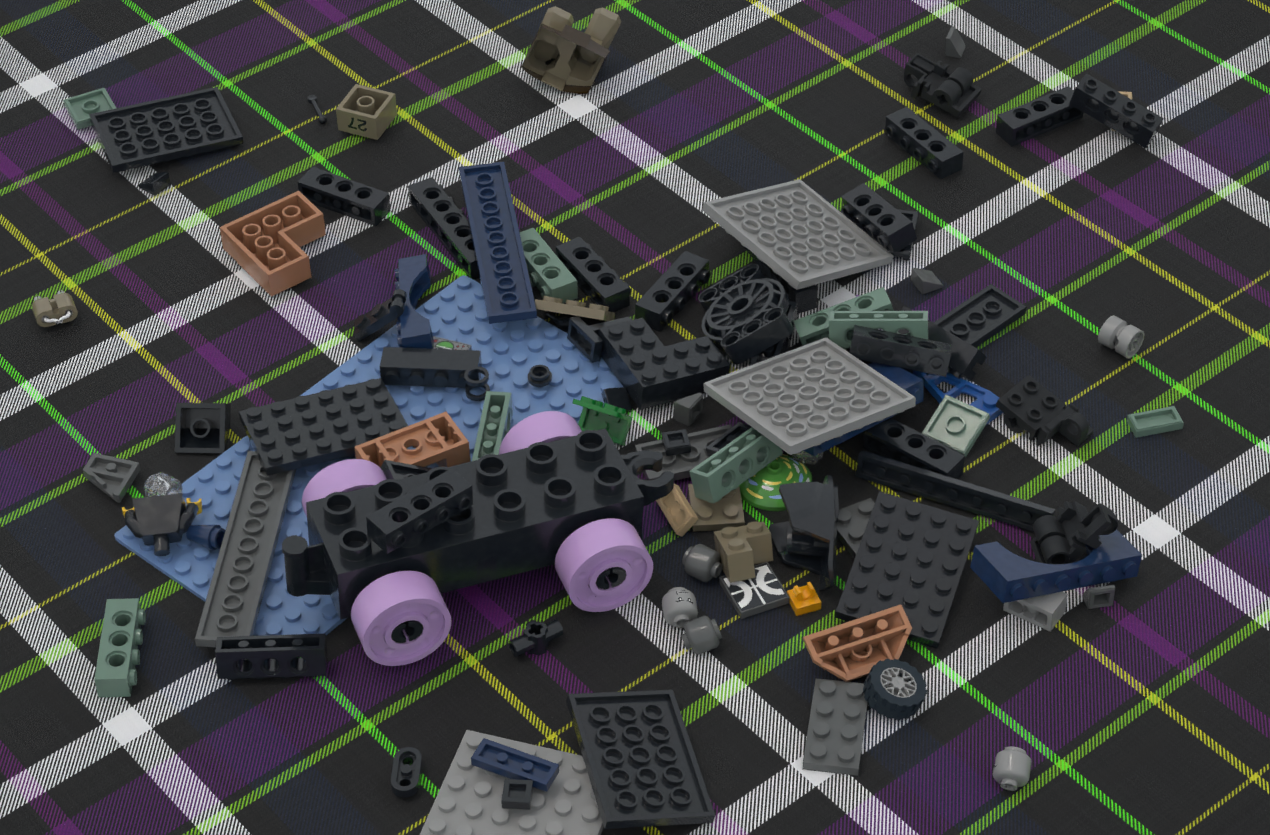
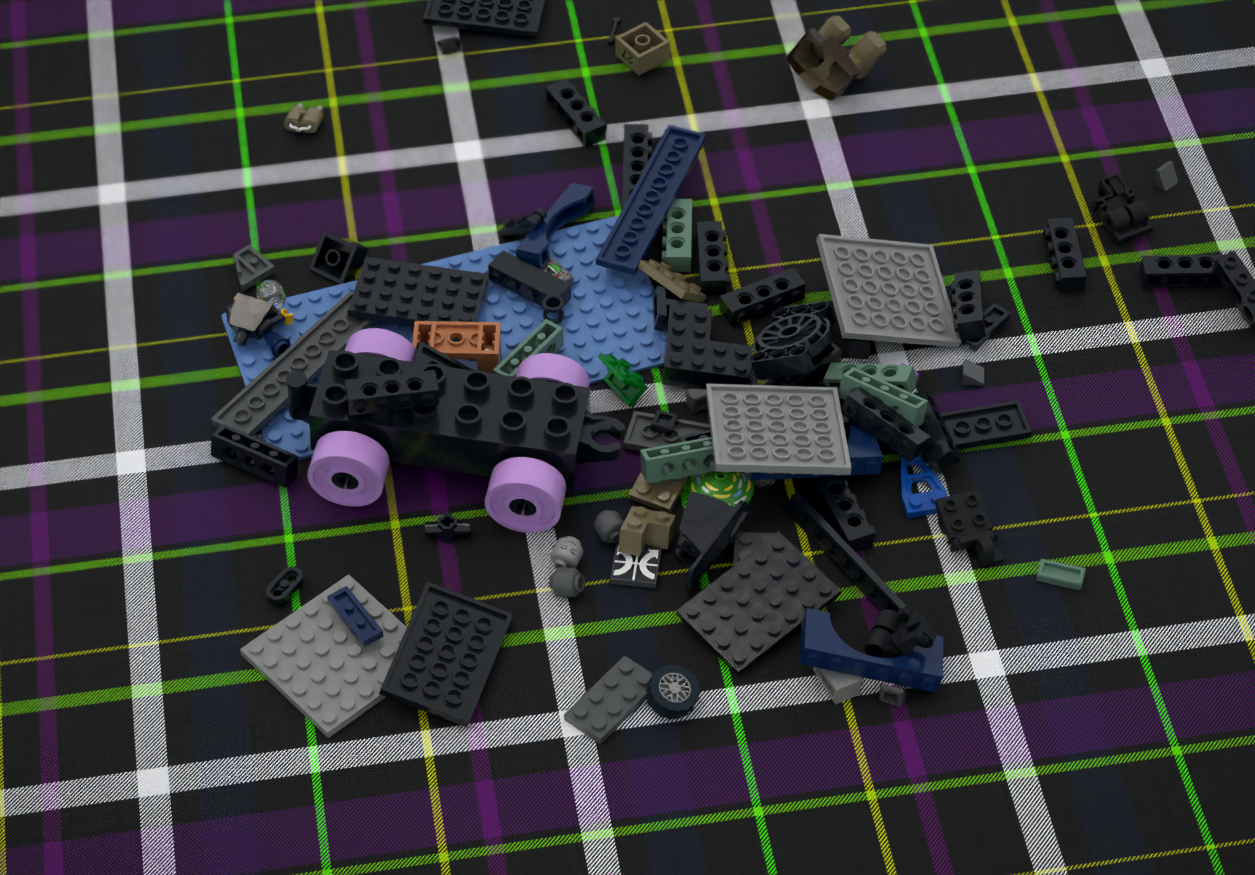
camera: 30 degrees right, 5 degrees up
(119, 648) = (161, 401): sand green brick -> none
(270, 241) = (490, 124): nougat brick -> none
(517, 794) = (340, 638): black plate -> none
(539, 376) = (605, 323): black plate -> none
(617, 397) = (650, 368): black slope -> none
(677, 511) = (626, 476): tan plate -> none
(804, 599) = (667, 590): light orange tile -> none
(859, 644) = (671, 643): nougat wedge -> none
(956, 424) = (892, 505): sand green tile -> none
(1012, 768) = (711, 794): light grey head -> none
(1122, 337) = (1088, 491): light grey wheel -> none

